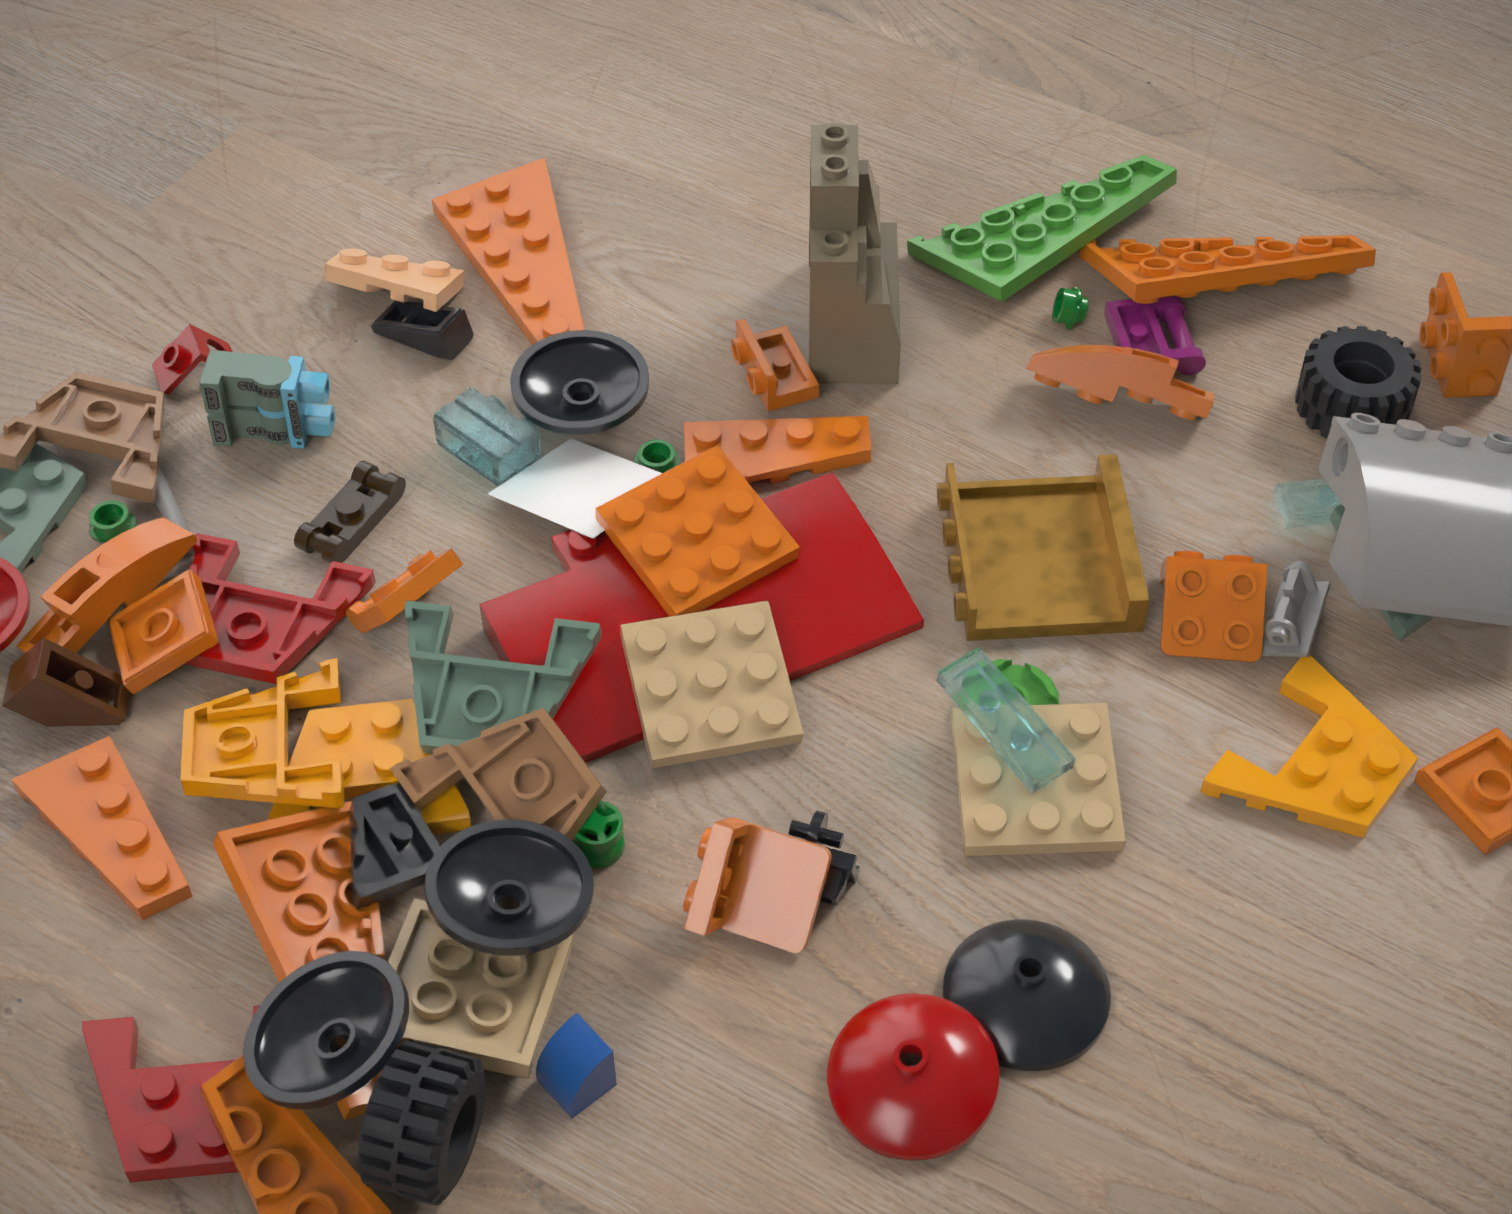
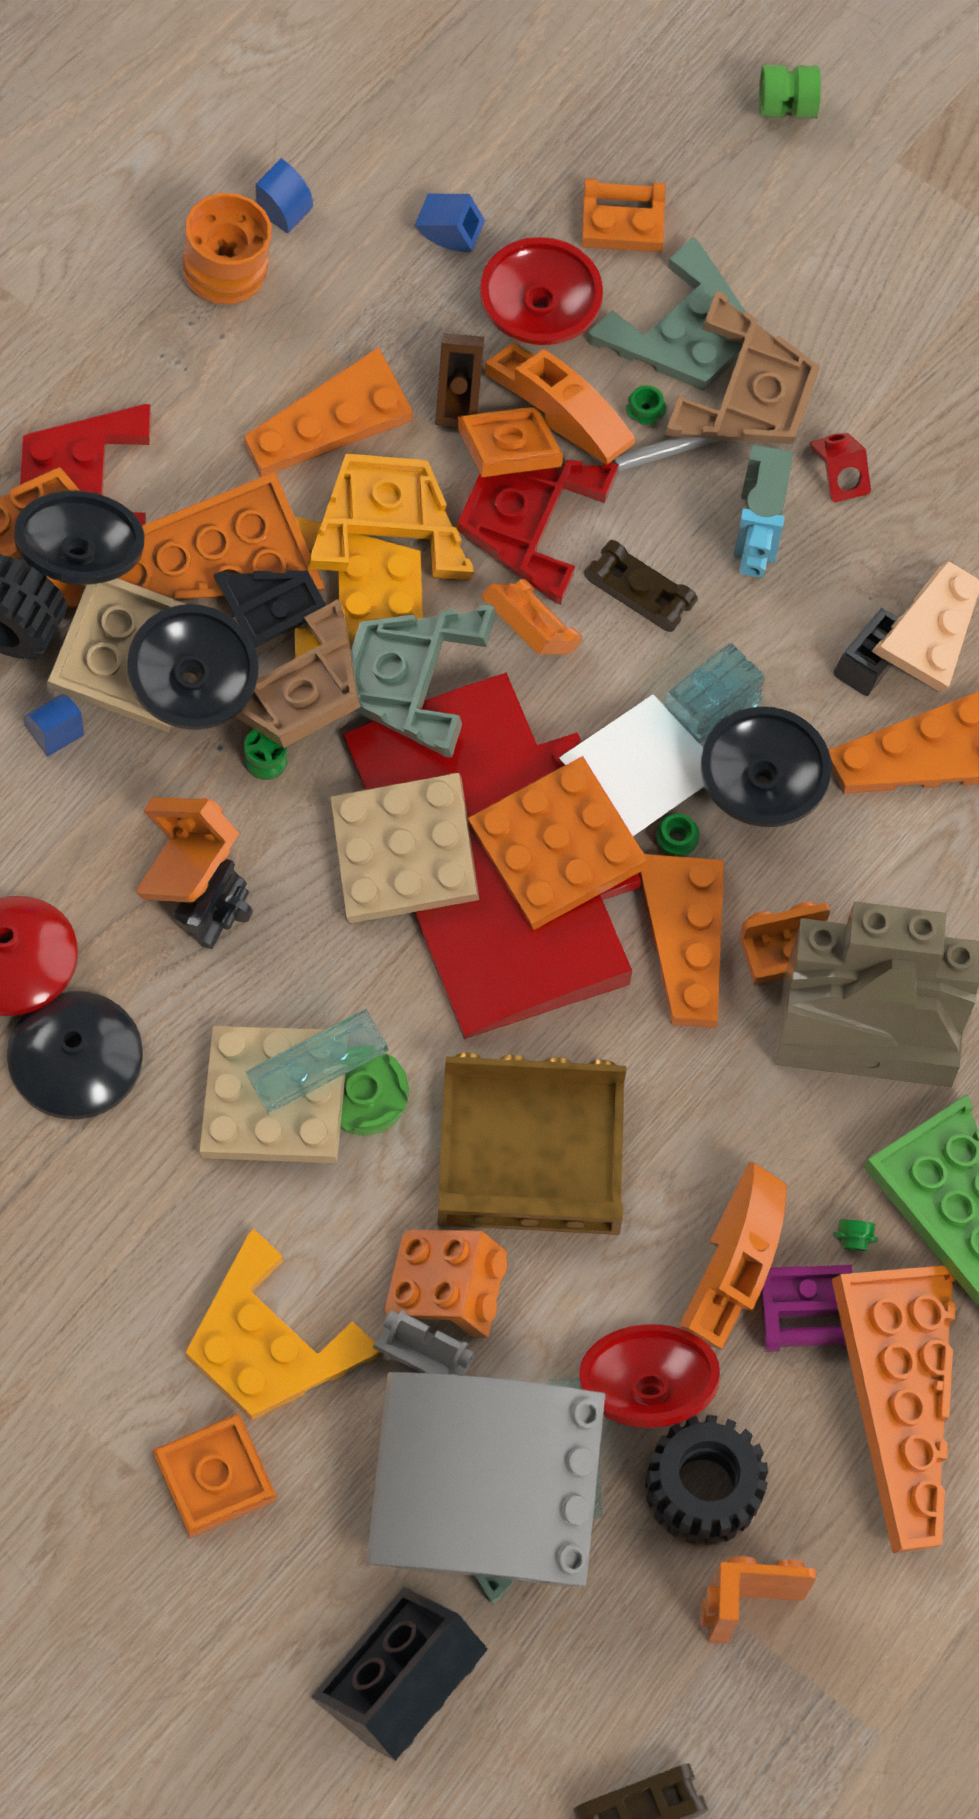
camera: 90 degrees right, 15 degrees up
(1261, 411) = (651, 1375): none -> red dish

